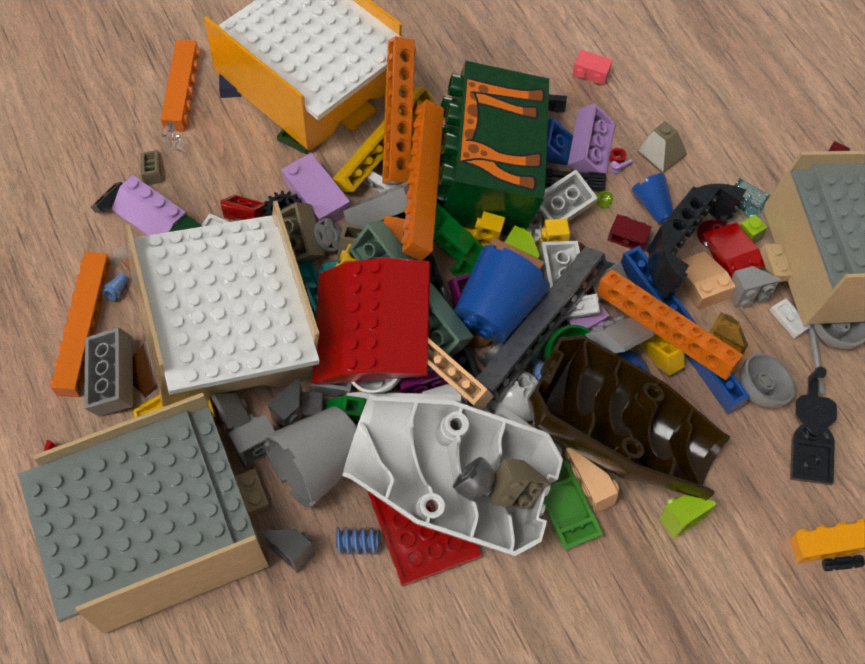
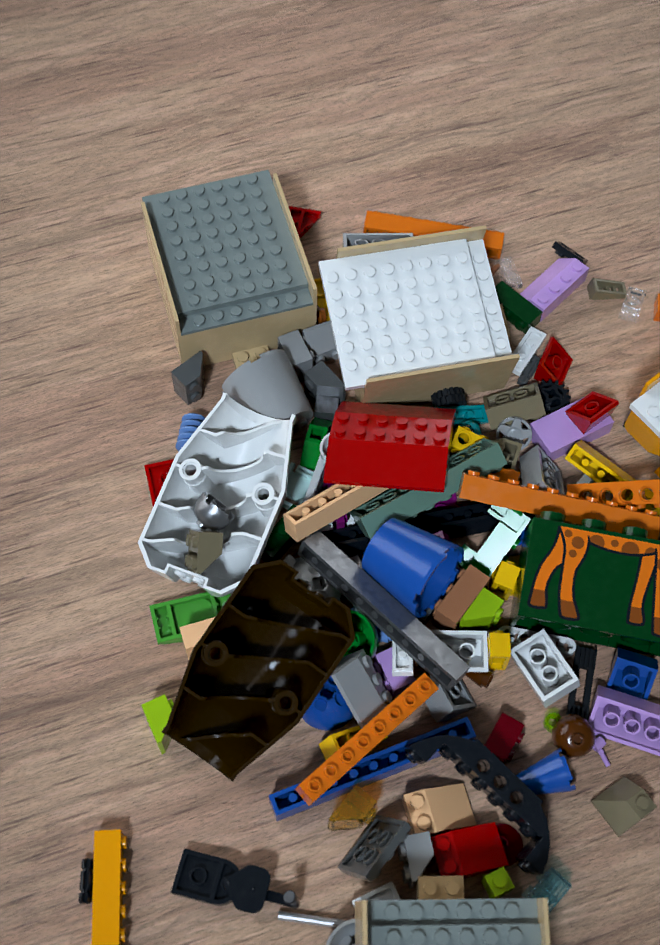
camera: 95 degrees right, 0 degrees up
(307, 164) = (591, 411): none -> red slope
(615, 152) = (621, 749): red bush -> none
(617, 180) = (573, 735): none -> reddish brown cylinder
(759, 314) = (374, 848): none -> dark grey plate
(767, 381) = (304, 849): light grey piece -> none

